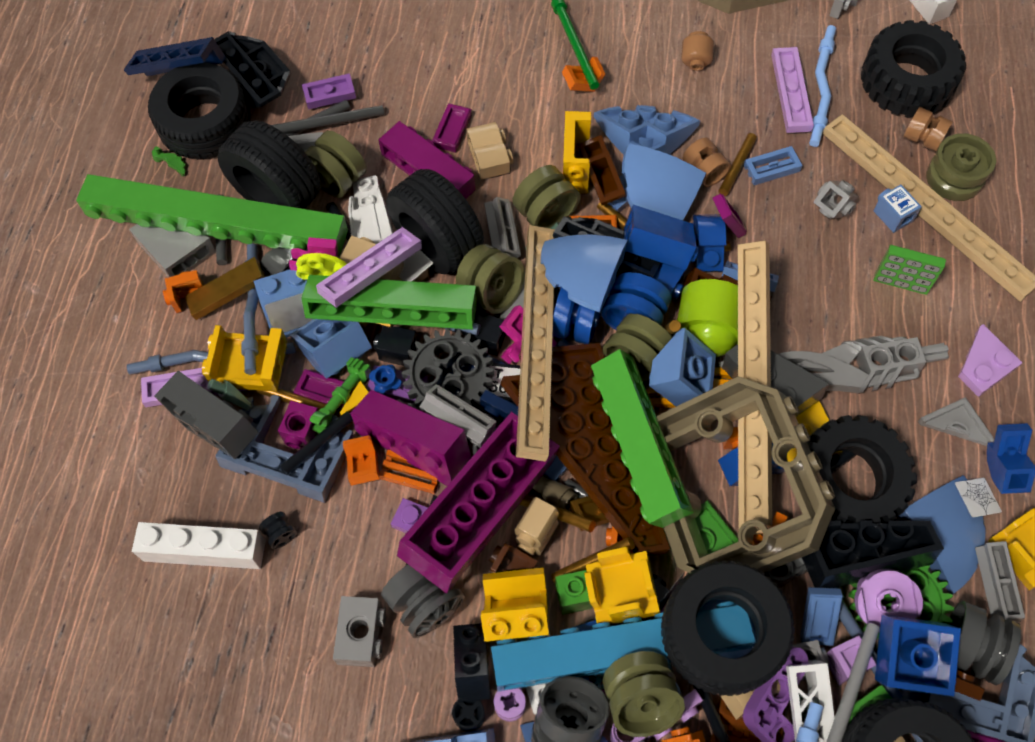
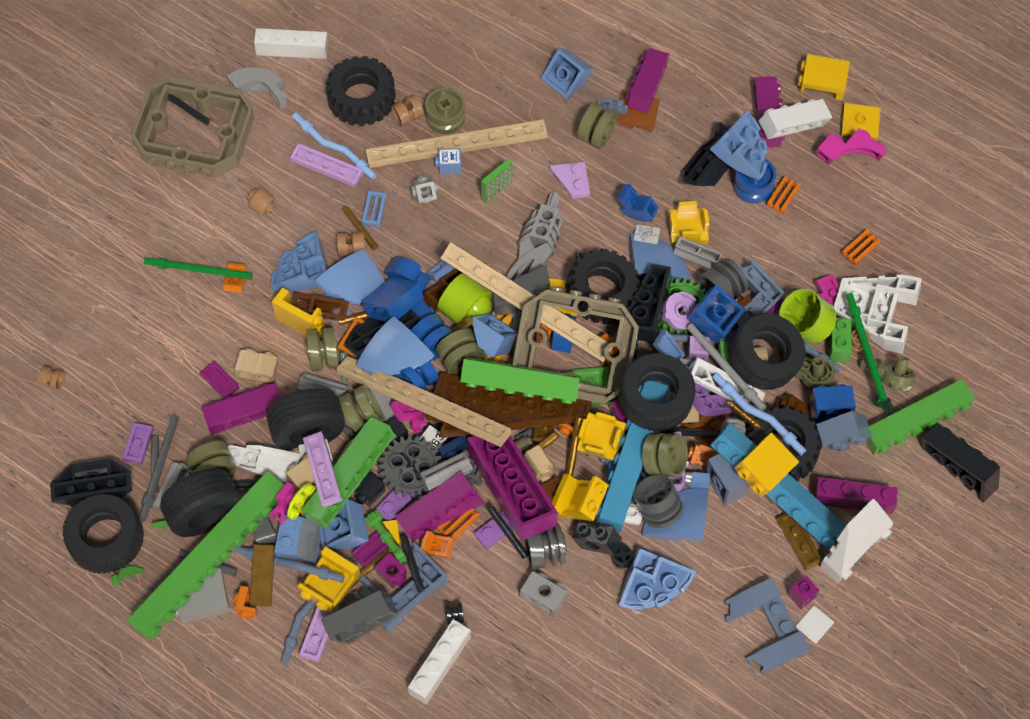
camera: 65 degrees left, 0 degrees up
(167, 57) = (50, 529): dark blue fence -> none
(229, 393) = (346, 600): sand green bar -> none
(382, 372) = (388, 500): blue plate -> none
(507, 709) = (629, 537): lavender wheel -> none
(572, 592) = (585, 466): bright green brick -> none
(729, 215) = (400, 253): magenta tile -> none
(960, 421) = (598, 215): light grey tile -> none

